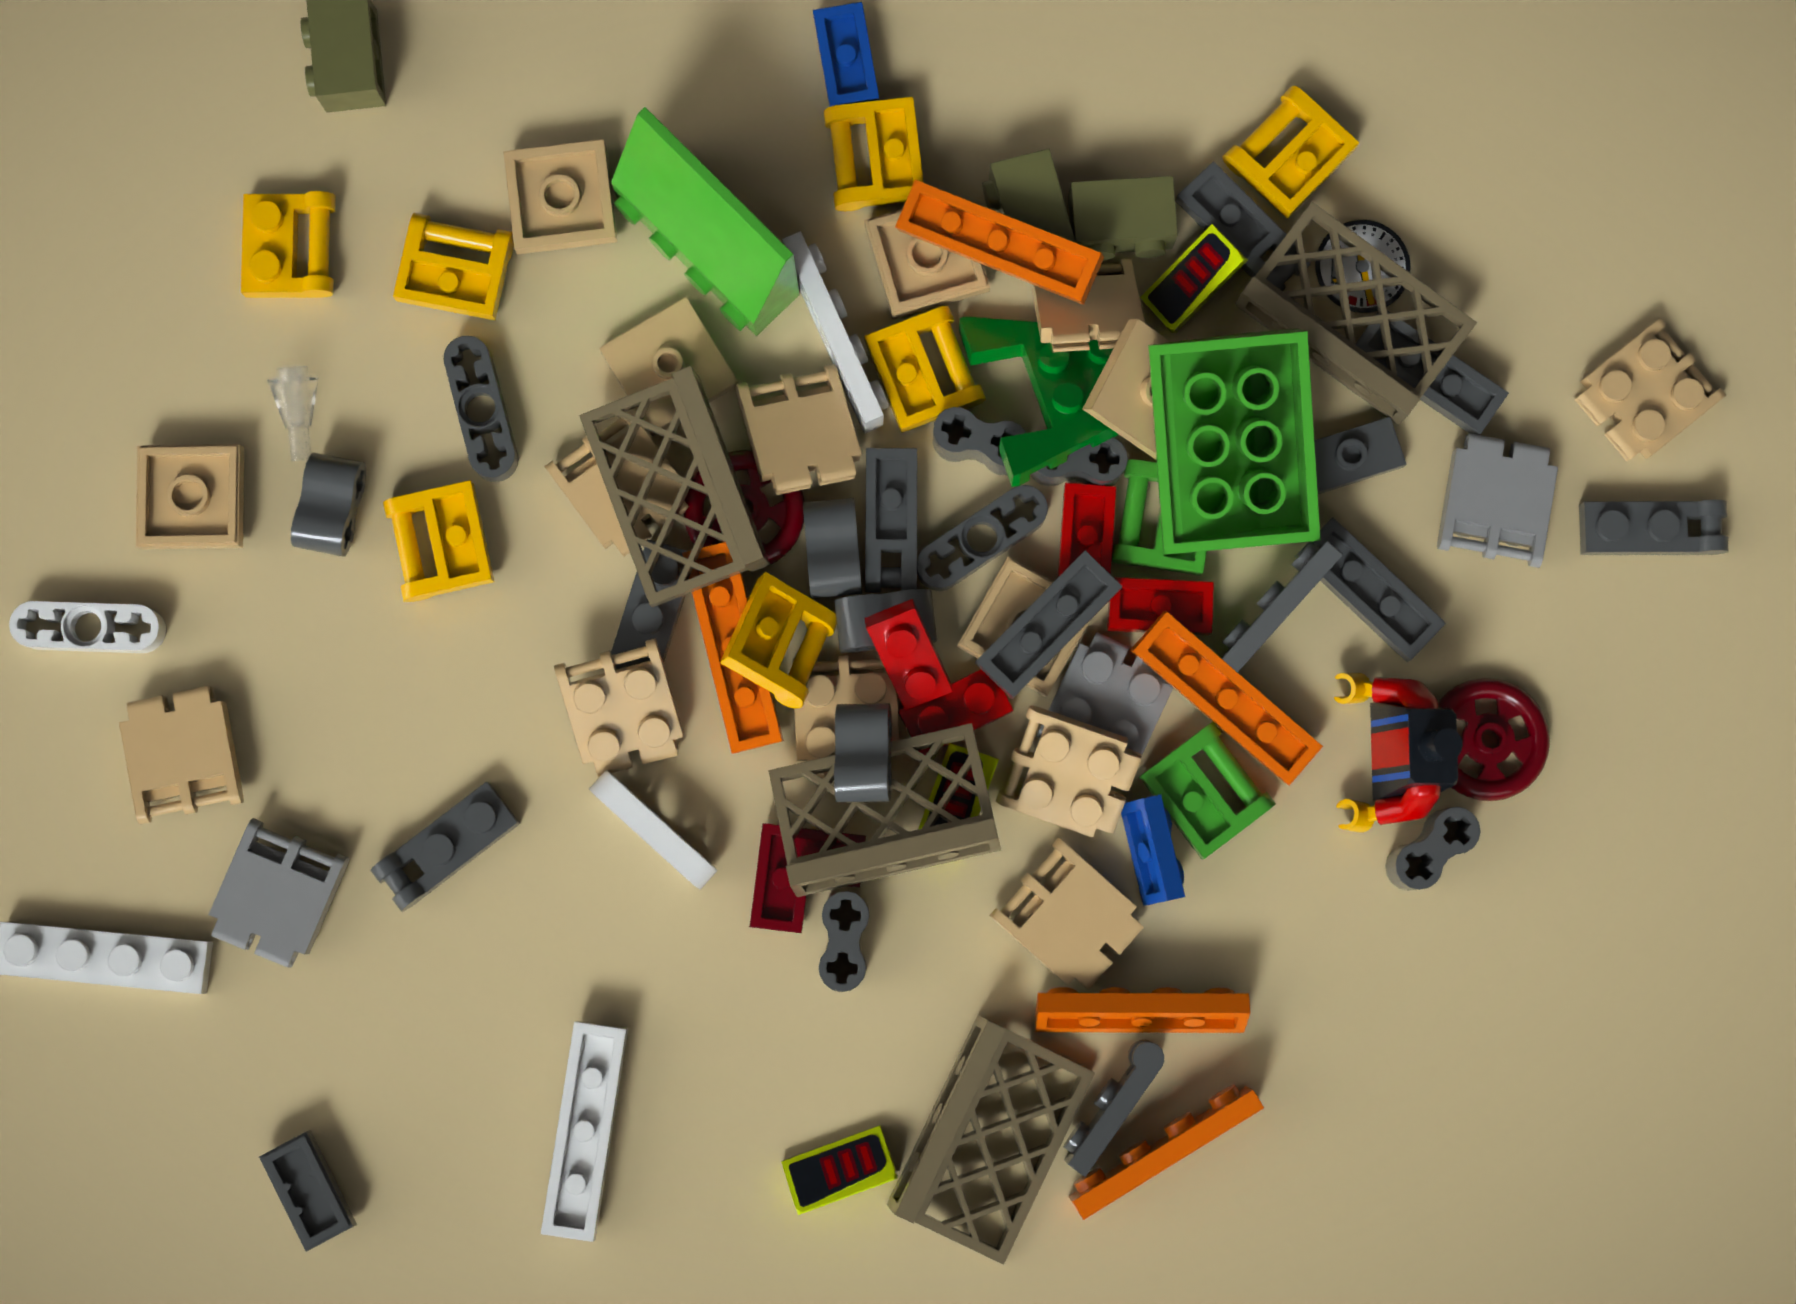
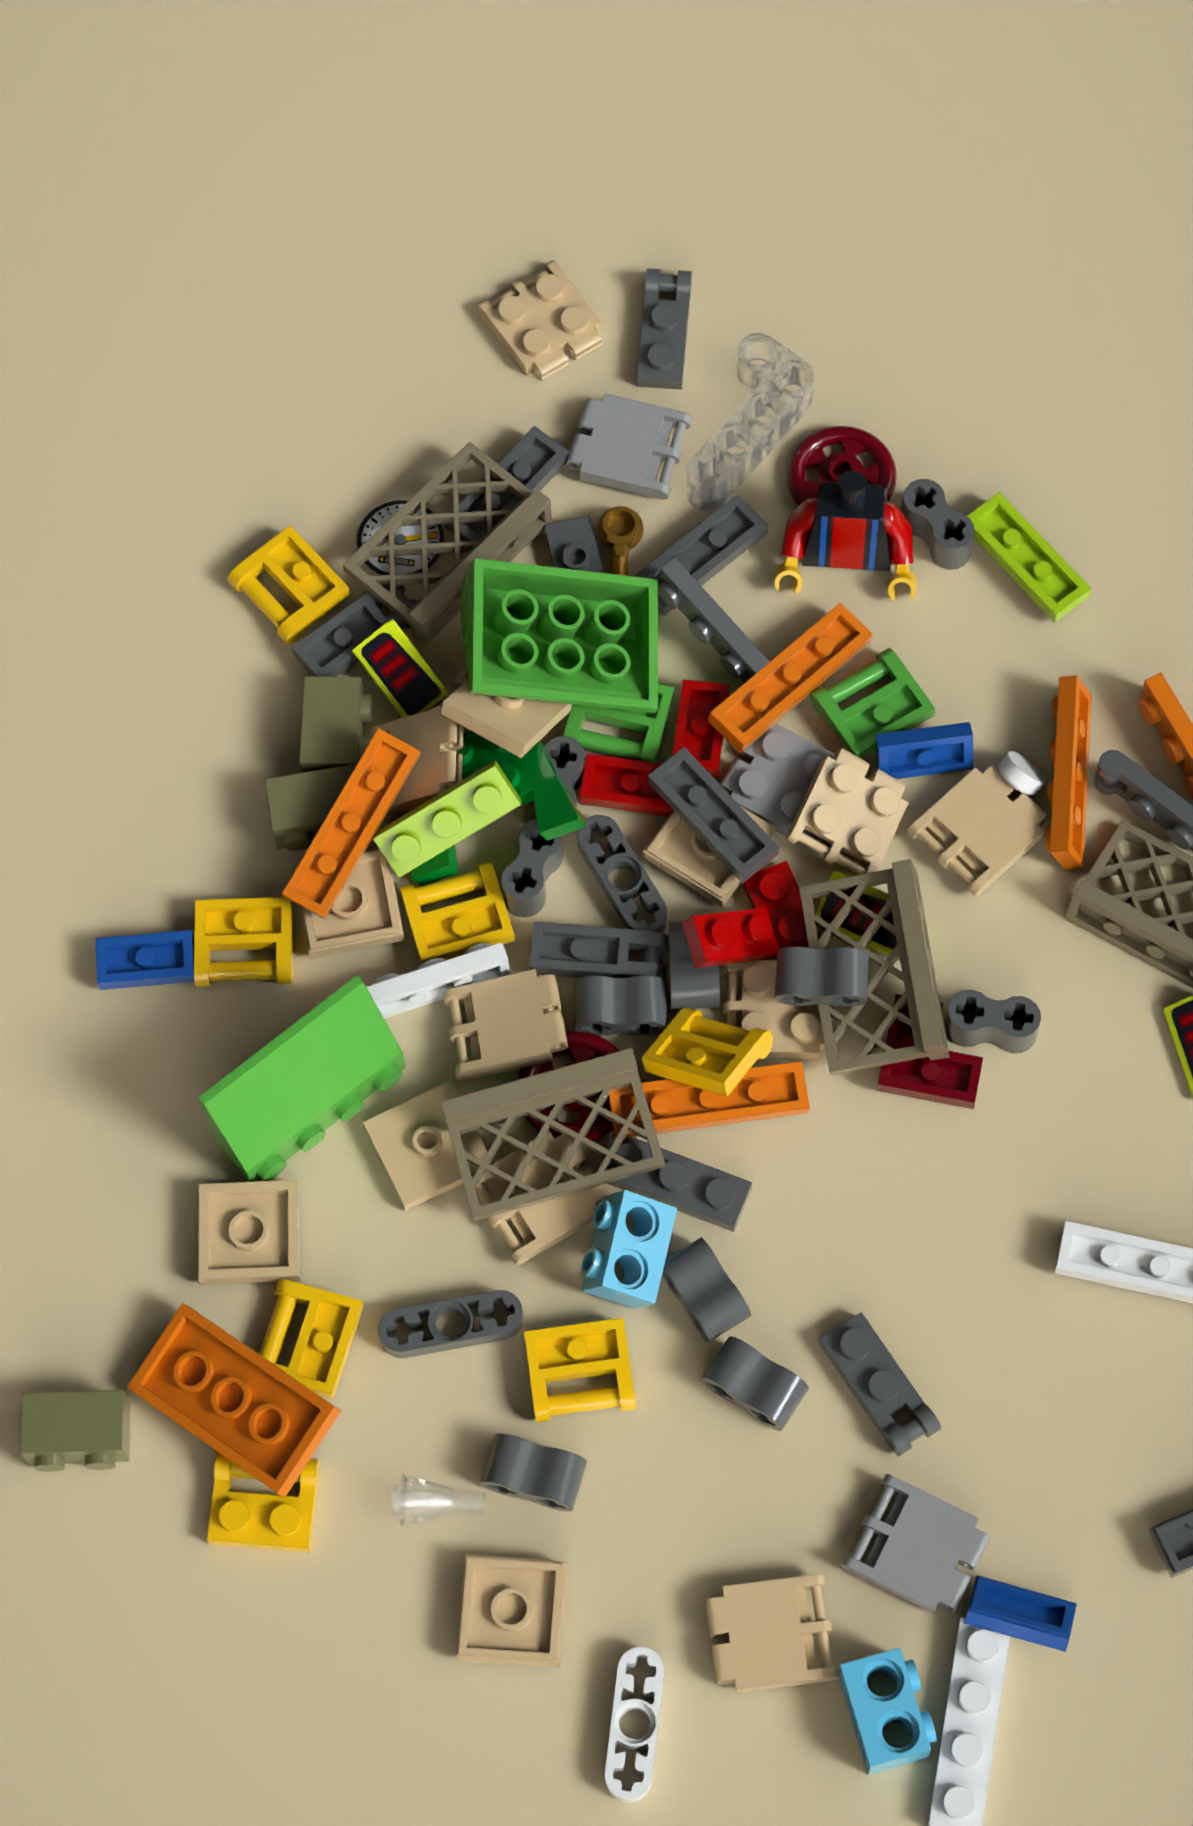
camera: 80 degrees left, 15 degrees down
(105, 862) = (873, 1713): none -> medium azure brick
(213, 1002) = (1020, 1613): none -> blue tile
(376, 199) = (234, 1399): none -> orange plate
(433, 718) = (755, 1383): none -> dark grey axle
(528, 659) = (705, 1290): none -> dark grey axle
(561, 590) = (639, 1254): none -> medium azure brick
(621, 709) = (760, 1203): tan plate -> none
(653, 829) = (876, 1186): white beam -> none
(1016, 342) = (447, 819): none -> lime plate
(1136, 958) = (1021, 773): none -> white tile
(1391, 501) = (620, 531): none -> pearl gold plate
(1403, 952) = (1028, 558): none -> lime plate
(1530, 622) = (743, 429): none -> clear beam

